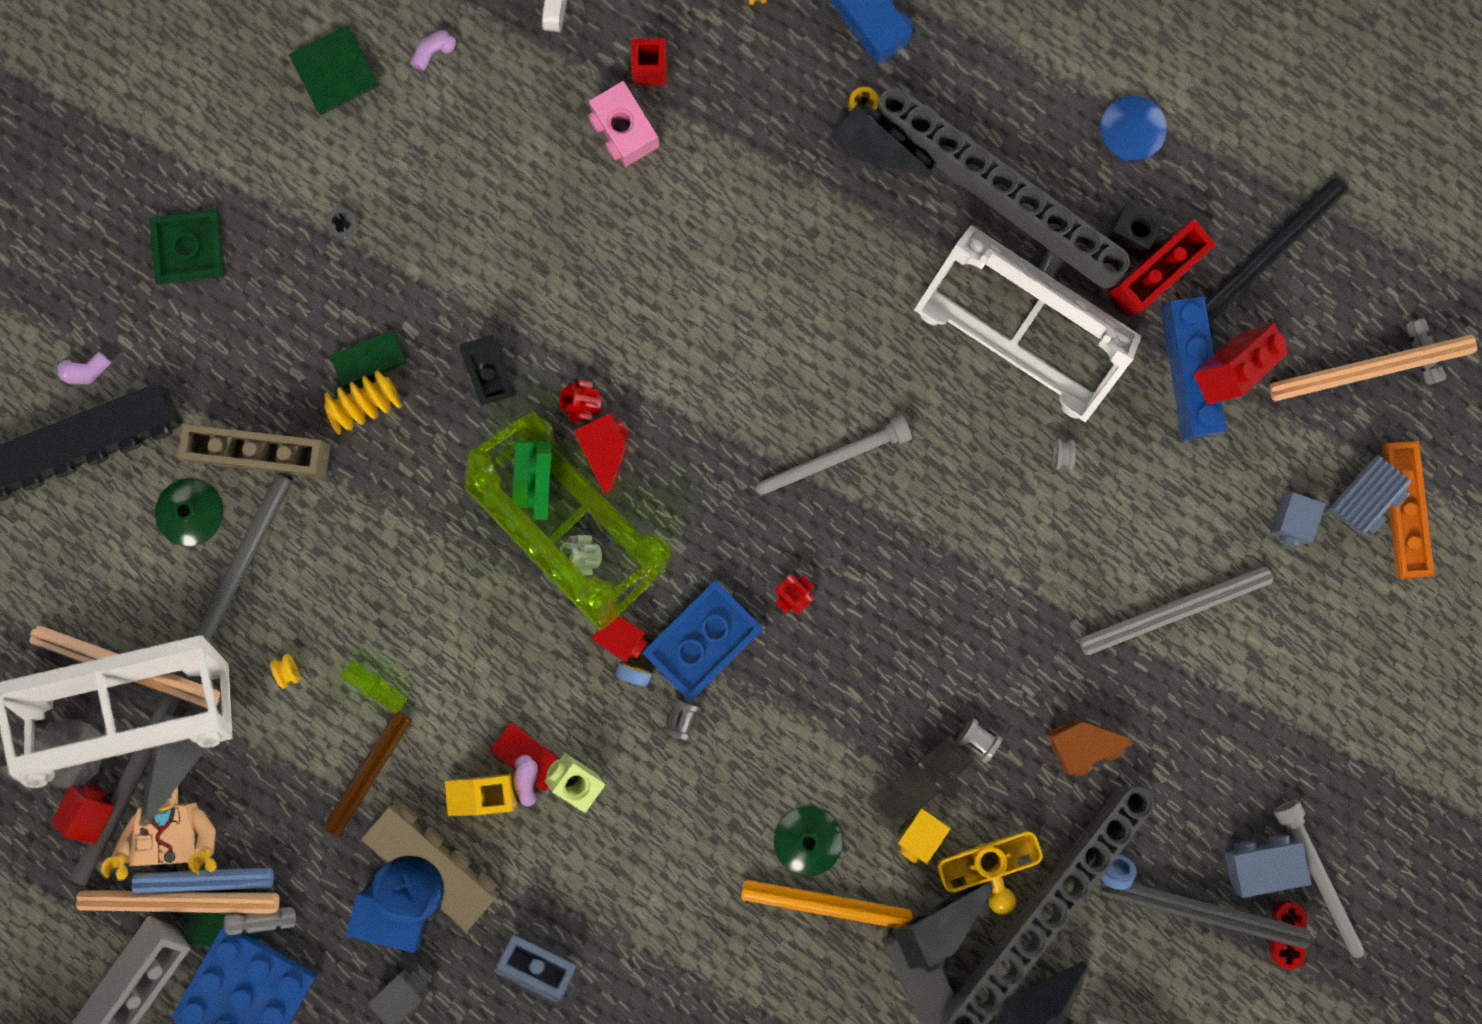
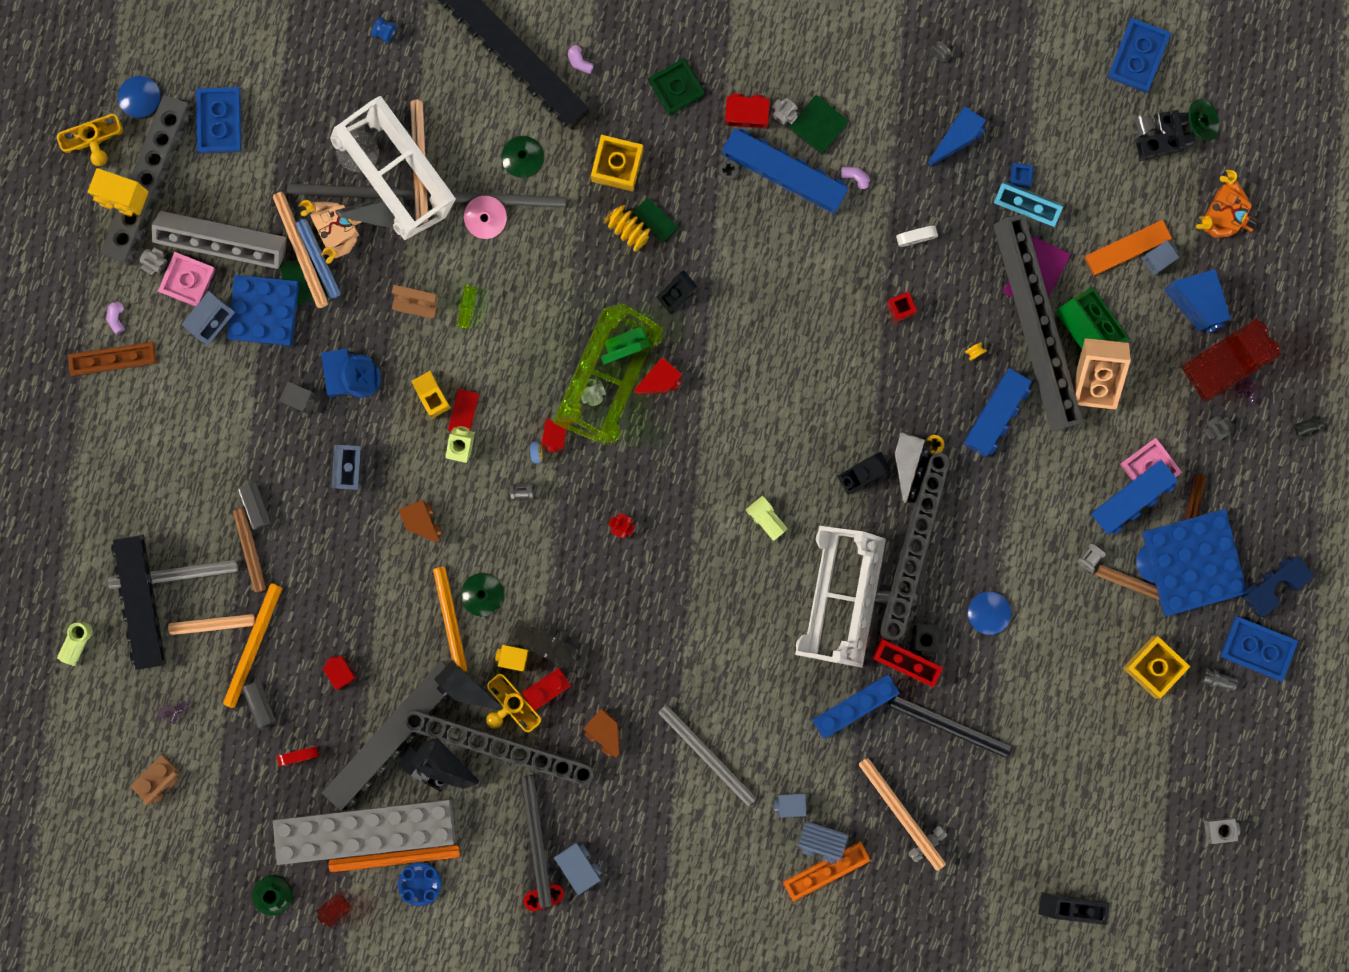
camera: 70 degrees right, 0 degrees up
(83, 813) = (327, 175): red brick -> none
(254, 451) = (573, 180): dark tan brick -> none
(255, 922) = (308, 300): light grey axle -> none
(257, 586) = (496, 217): none -> bright pink dish
(258, 377) = (617, 163): none -> yellow brick
(268, 160) = (747, 111): none -> red brick
(285, 671) = (454, 252): yellow bush -> none
(292, 107) = (784, 111): none -> light grey gear
(331, 761) = (414, 302): none -> medium nougat bracket
(367, 773) = (416, 324): reddish brown axle -> none
(378, 143) = (784, 170): none -> blue brick
(464, 891) = (371, 409): dark tan arch -> none
(524, 779) = (449, 415): lavender arm -> none
(580, 401) = (682, 353): red gear -> none
(619, 105) = (867, 298): bright pink brick -> none
(662, 891) = (419, 521): none -> dark orange slope
(702, 641) = (572, 484): blue plate -> none
(864, 216) = (864, 473): none -> black slope
(865, 382) = (764, 516): none -> yellowish green piece
(894, 432) = (742, 545): light grey piece -> none
(979, 740) = (581, 669): light grey bush -> none
(988, 804) = (546, 689): none -> red brick
(1064, 454) = (771, 650): light grey bush -> none
(1120, 873) = (539, 781): medium blue tile -> none
(1241, 363) = (867, 730): red brick -> none
(1292, 817) = (613, 871): light grey piece -> none

